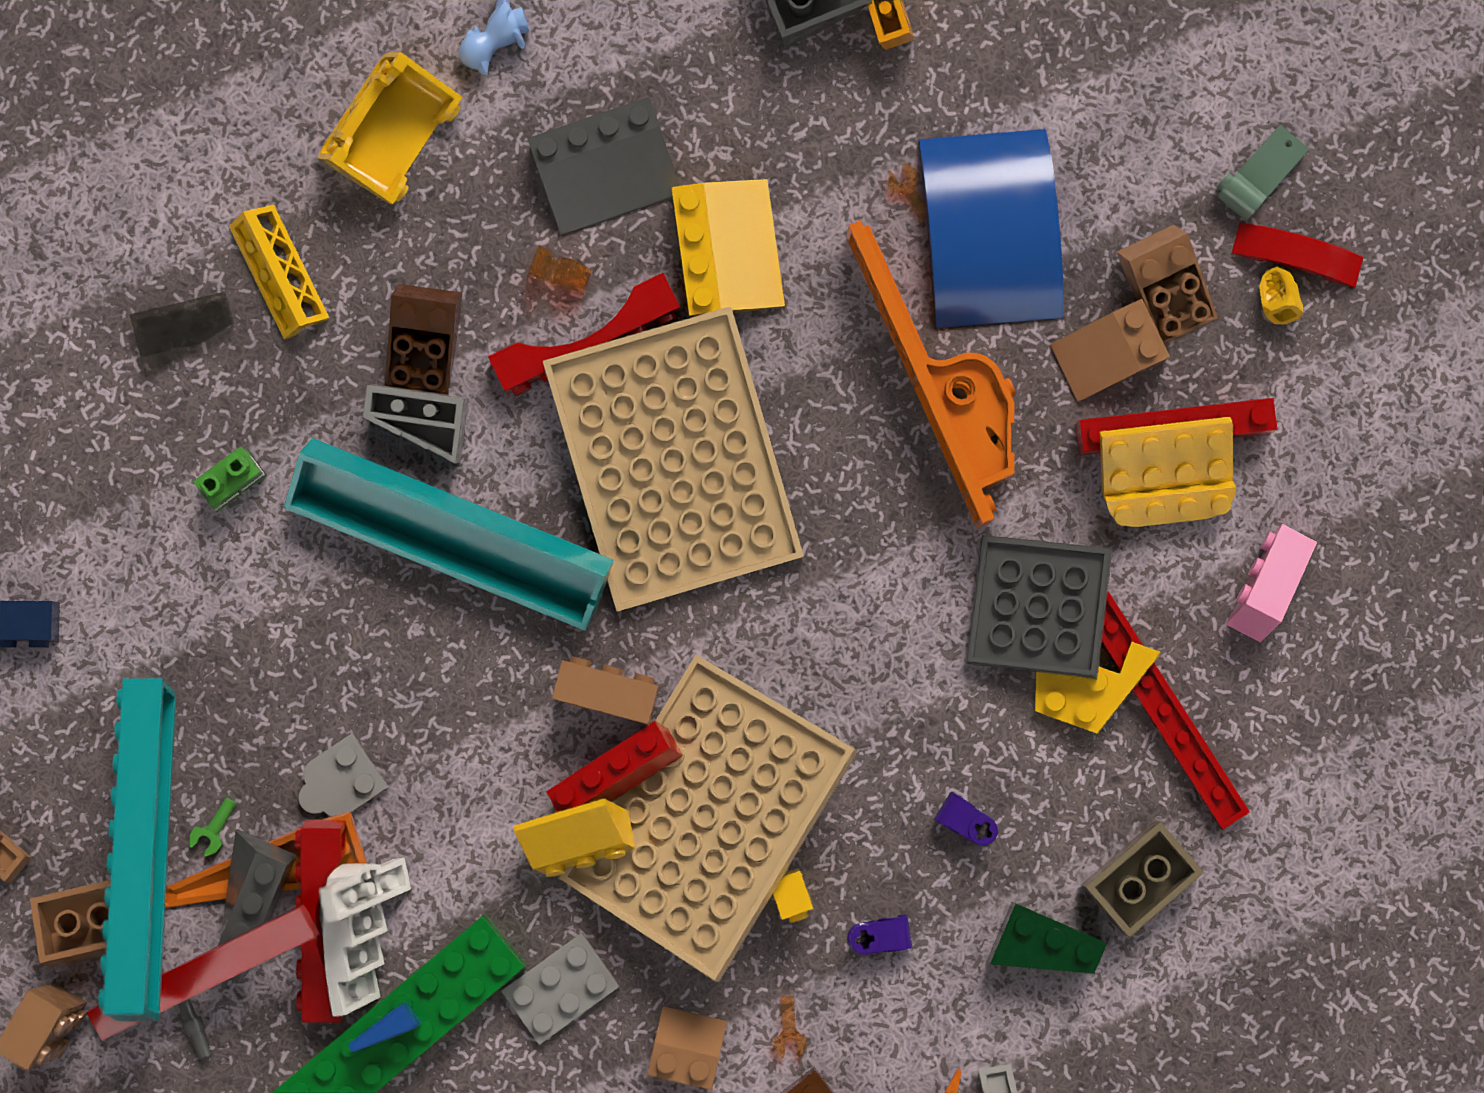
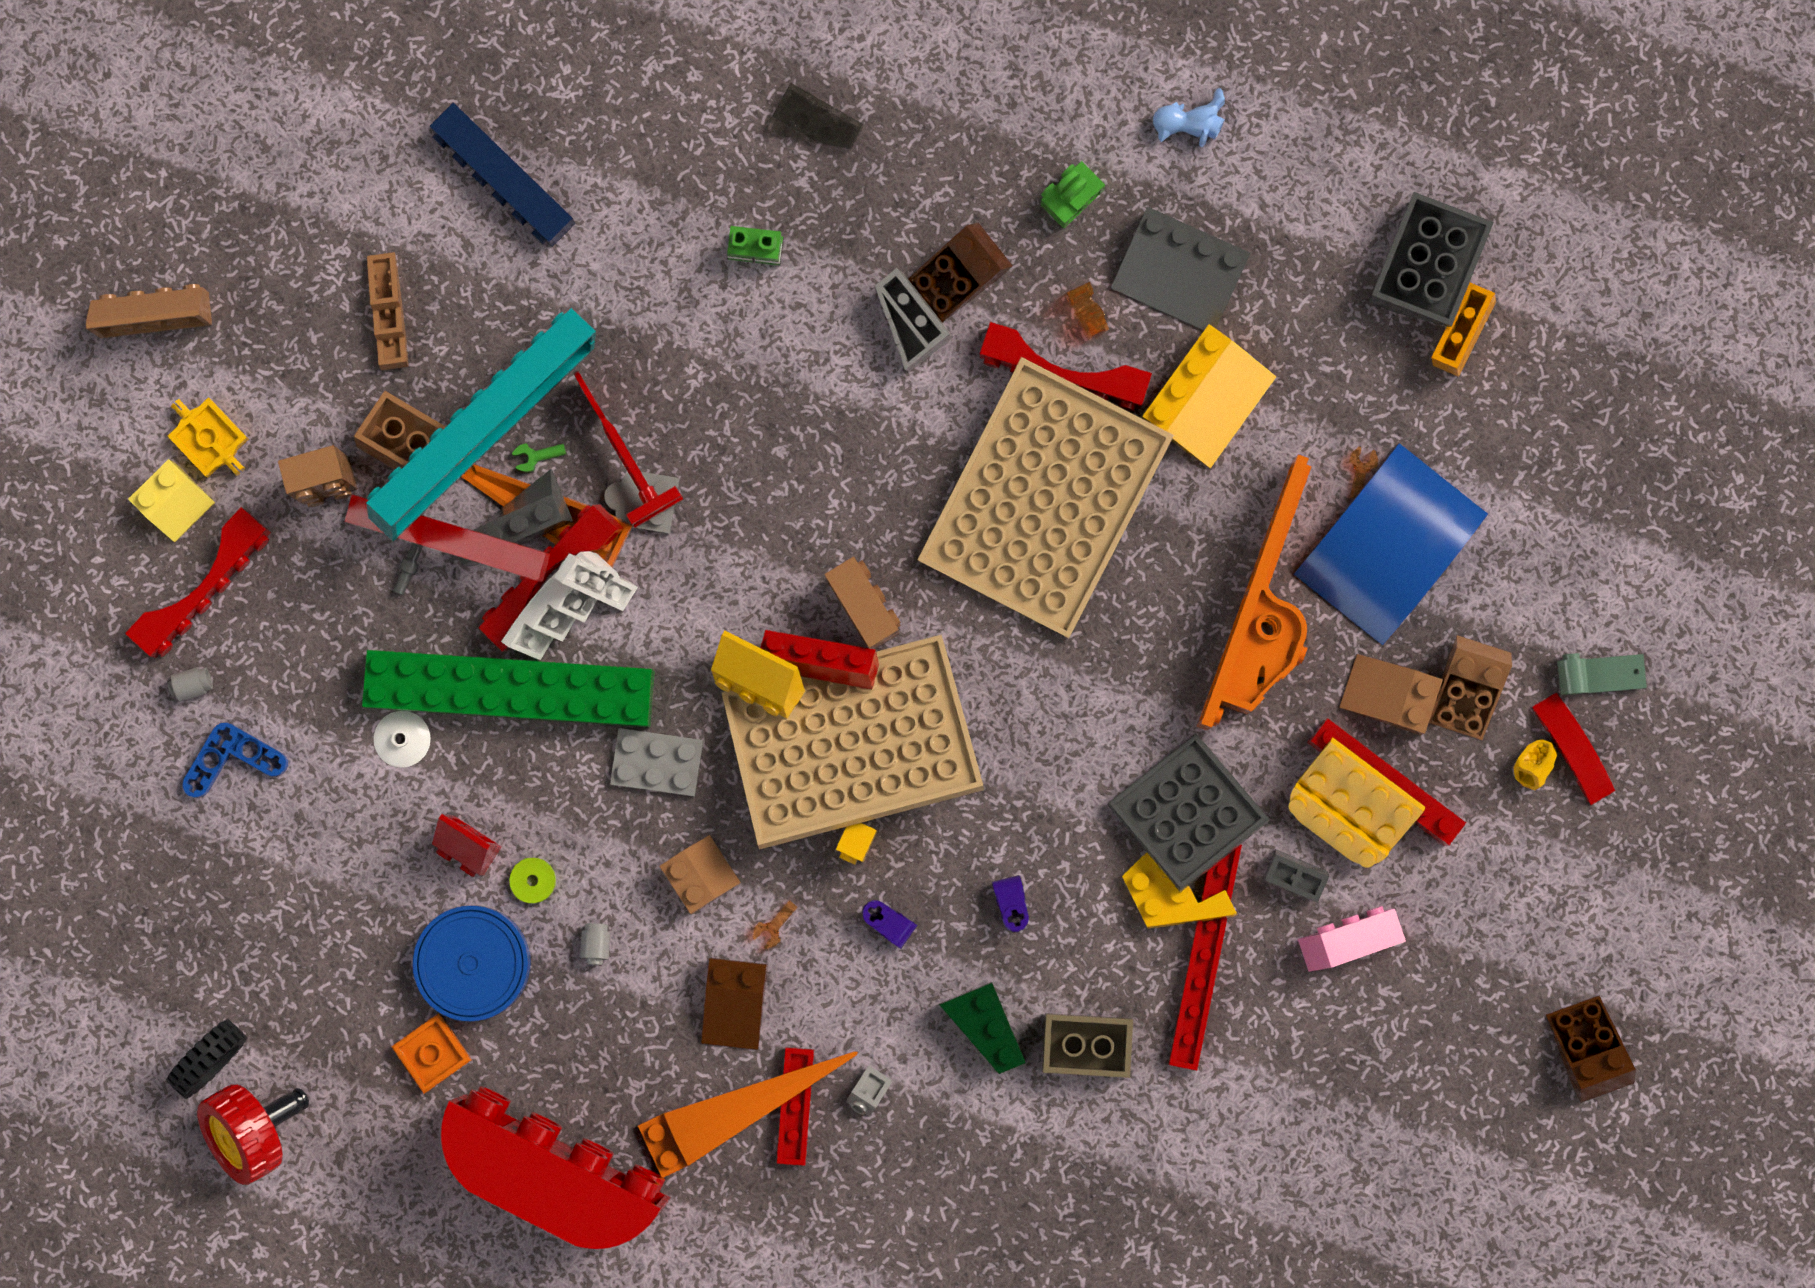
camera: 50 degrees right, 0 degrees up
(271, 271) = (905, 139): yellow fence -> none
(350, 775) = (652, 502): none -> red piece
(388, 125) = (1067, 116): yellow windscreen -> none
(395, 1023) = (534, 681): blue slope -> none
(448, 533) = (858, 410): teal piece -> none
(454, 186) = (1071, 194): none -> bright green brick
(1177, 573) = (1296, 875): none -> dark grey hinge

